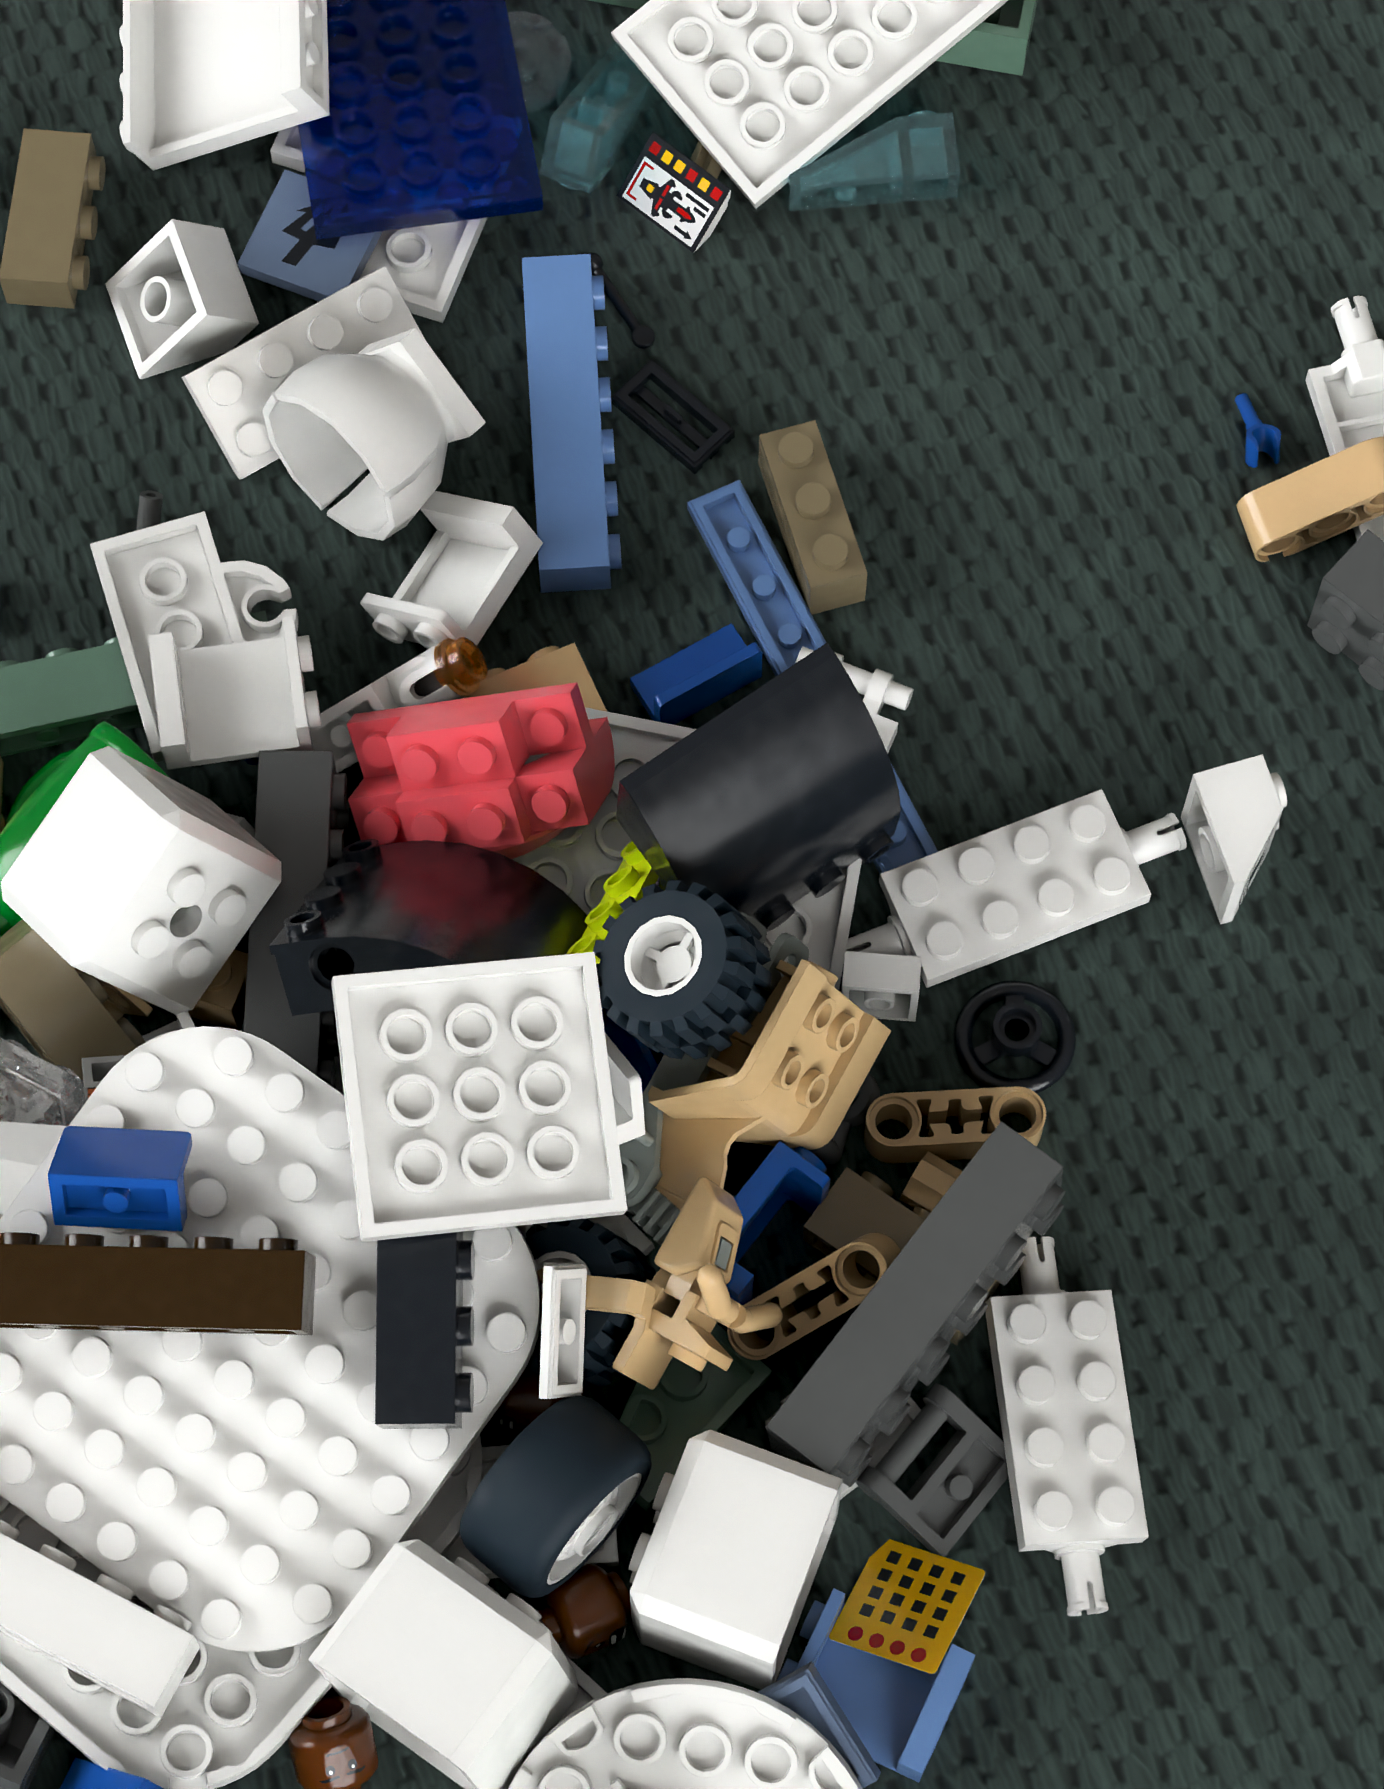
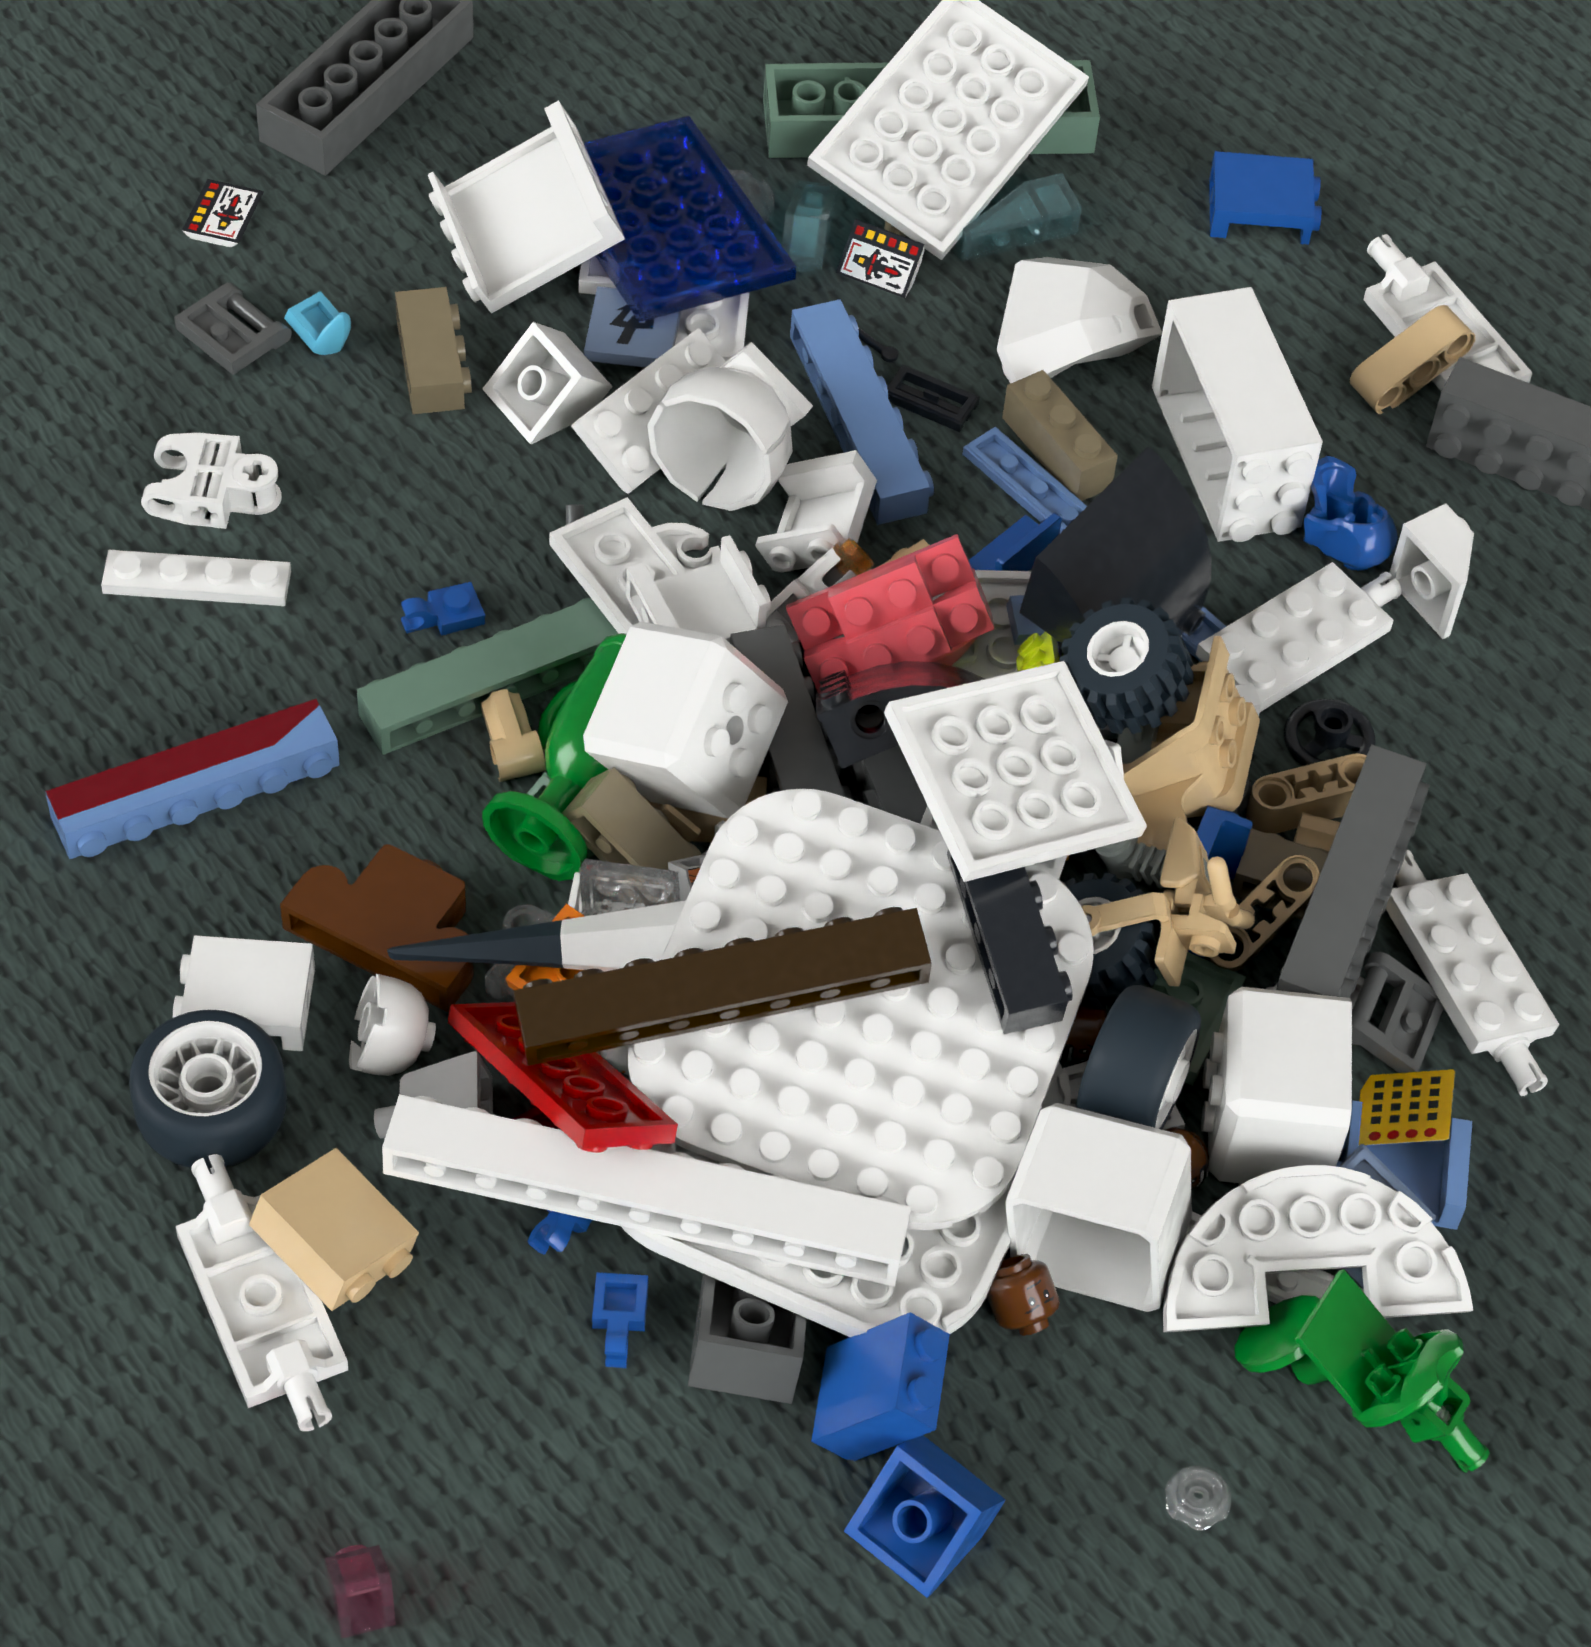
camera: 20 degrees left, 15 degrees down
(120, 1178) = (753, 902): blue panel -> none
(562, 1330) = (1110, 944): white slope -> none
(882, 339) = (1069, 316): none -> white brick
(1040, 548) = (1236, 414): none -> white container
(1143, 726) = (1347, 522): none -> blue head
(1222, 192) = (1263, 193): none -> blue panel
(1258, 435) = (1350, 337): blue hand -> none

